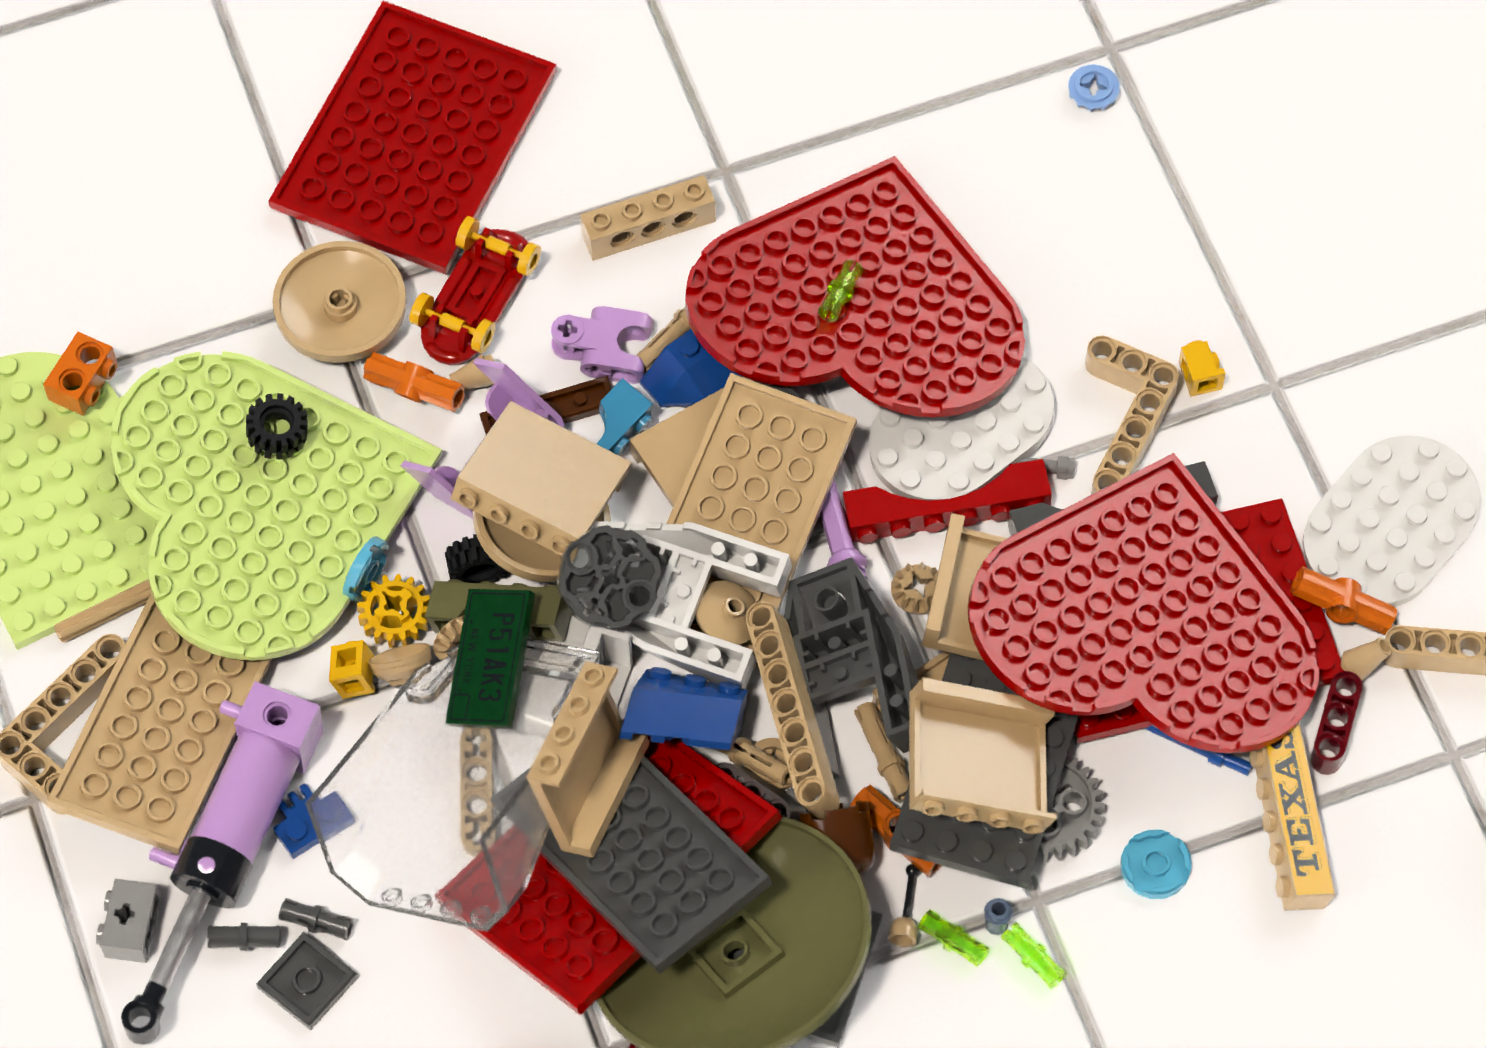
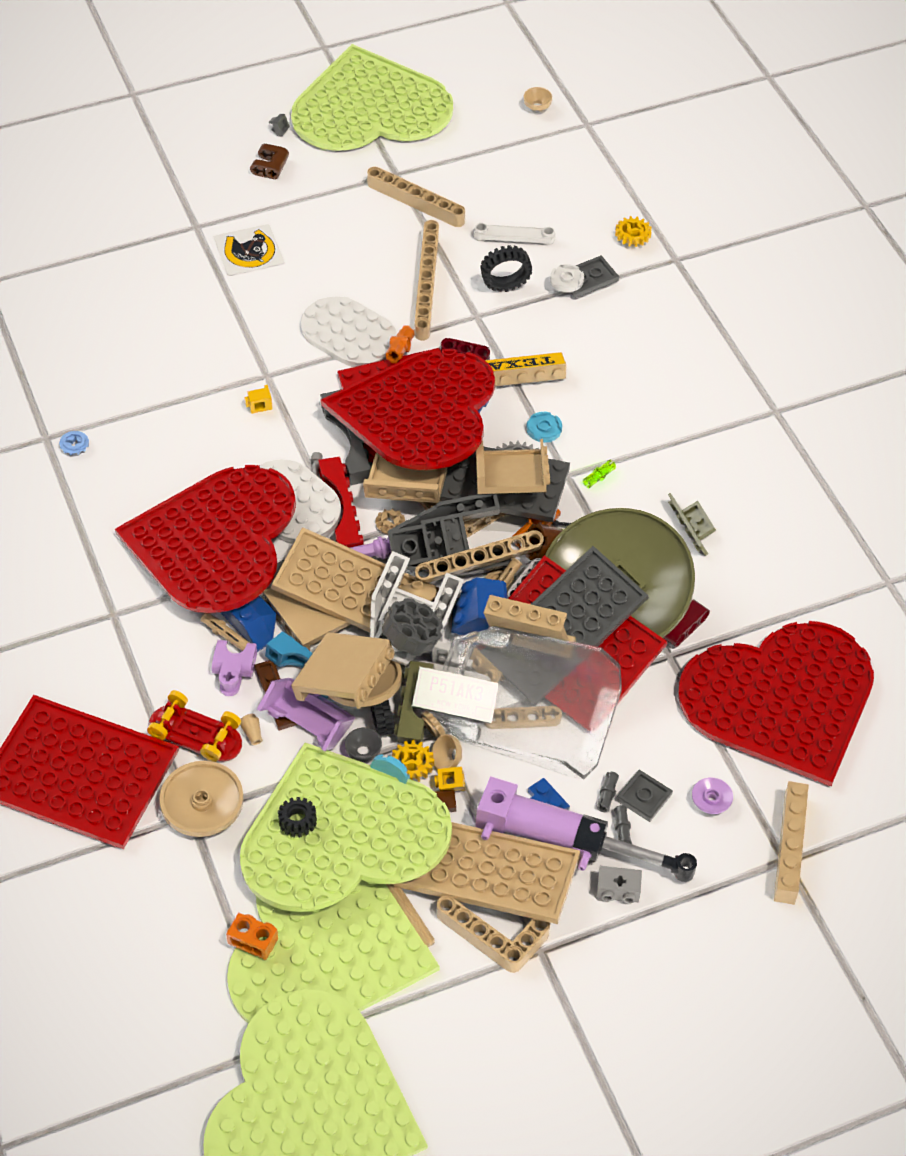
camera: 95 degrees left, 10 degrees down
(315, 663) = (448, 798): none -> reddish brown tile
(413, 382) = (258, 758): orange piece -> none
(423, 522) = (363, 737): none -> dark grey piece
(648, 217) = (149, 644): tan brick -> none
(840, 290) = (216, 537): clear neon green pin -> none
(889, 763) = (497, 530): tan pin -> none
(953, 938) = (594, 503): clear neon green pin -> none
(997, 915) = (581, 481): sand blue pin -> none
(1136, 420) = (275, 418): tan beam -> none
(1365, 658) = (431, 338): tan cone -> none

